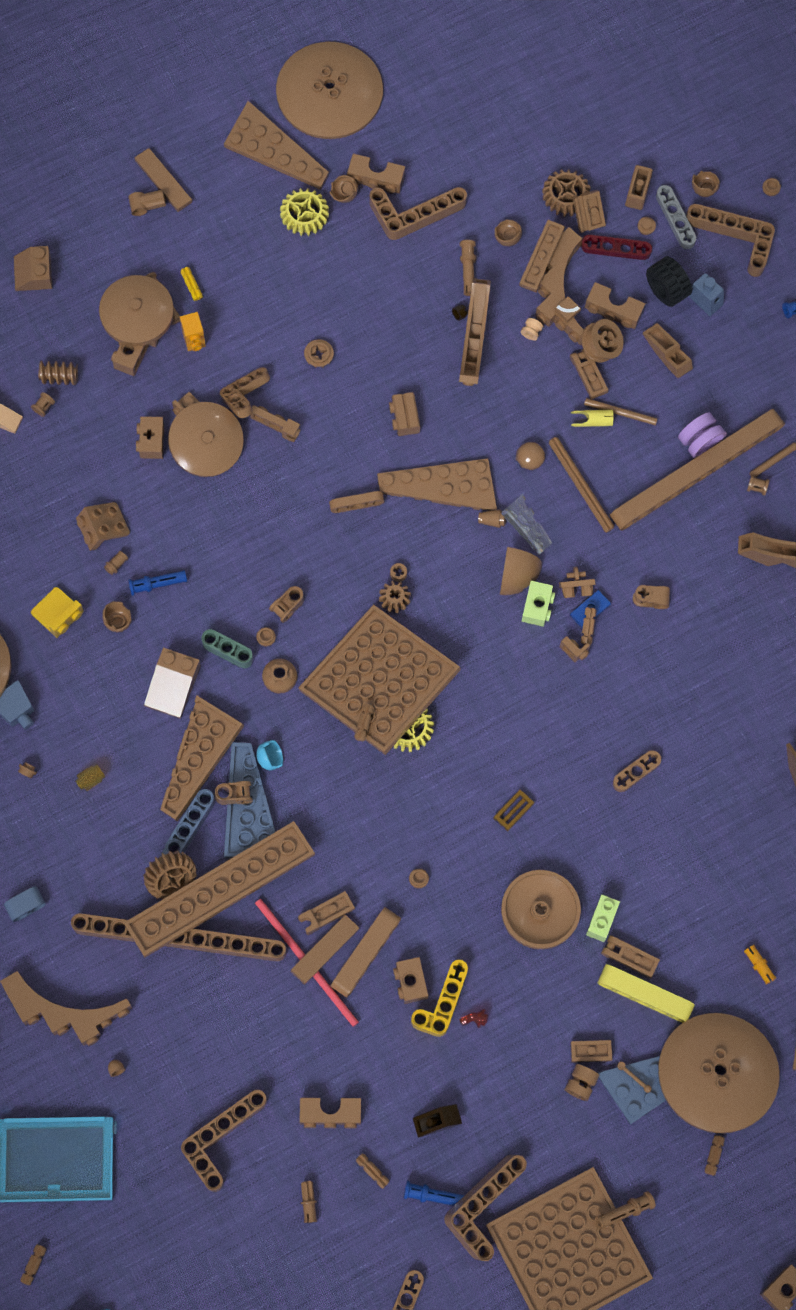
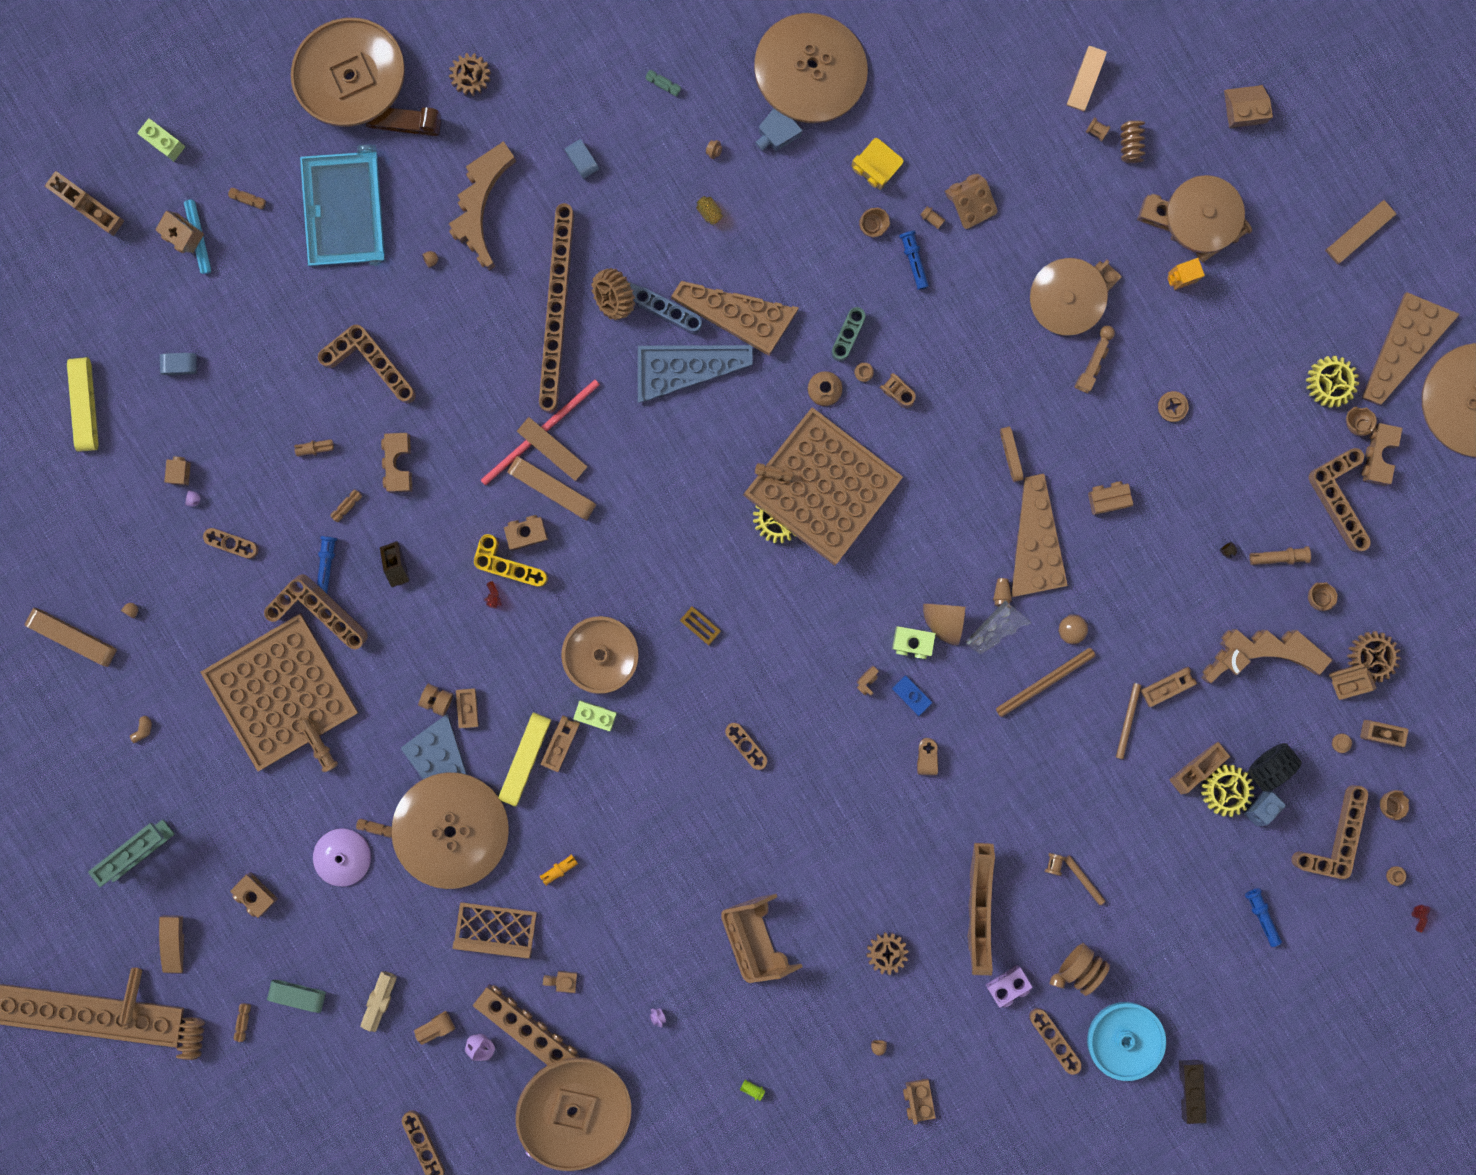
camera: 90 degrees right, 15 degrees up
(142, 202) = (1332, 211): medium nougat piece -> none
(152, 447) = (1059, 246): medium nougat brick -> none
(172, 682) = (809, 282): slope -> none
(191, 283) = (1243, 270): yellow axle -> none
(219, 889) = (602, 342): medium nougat plate -> none
(234, 393) = (1124, 323): medium nougat beam -> none
(235, 793) = (698, 351): medium nougat piece -> none
(269, 755) = (740, 383): medium azure hair -> none
(327, 912) = (589, 449): medium nougat plate -> none
(395, 590) = (919, 499): medium nougat gear -> none
(403, 570) = (936, 495): medium nougat bush -> none
(418, 878) = (627, 536): medium nougat plate -> none
(475, 331) = (1201, 565): medium nougat arch -> none
(532, 329) = (1214, 625): light nougat wheel -> none
(541, 256) = (1295, 632): medium nougat plate -> none
(568, 587) = (934, 672): medium nougat hips -> none
(588, 625) = (892, 693): medium nougat axle -> none
(595, 342) = (1205, 707): medium nougat wheel -> none
(595, 418) = (1118, 695): light yellow piece -> none
(616, 244) = (1310, 711): dark red beam -> none
(621, 1066) = (432, 762): medium nougat hinge -> none
(626, 314) = (1237, 725): medium nougat arch -> none
(677, 216) = (1354, 774): light grey beam -> none
(697, 469) = (1068, 801): medium nougat beam -> none
(700, 335) = (1223, 795): none -> light yellow gear
(701, 434) = (1105, 803): lavender wheel -> none
(731, 1198) = (351, 848): none -> lavender dish

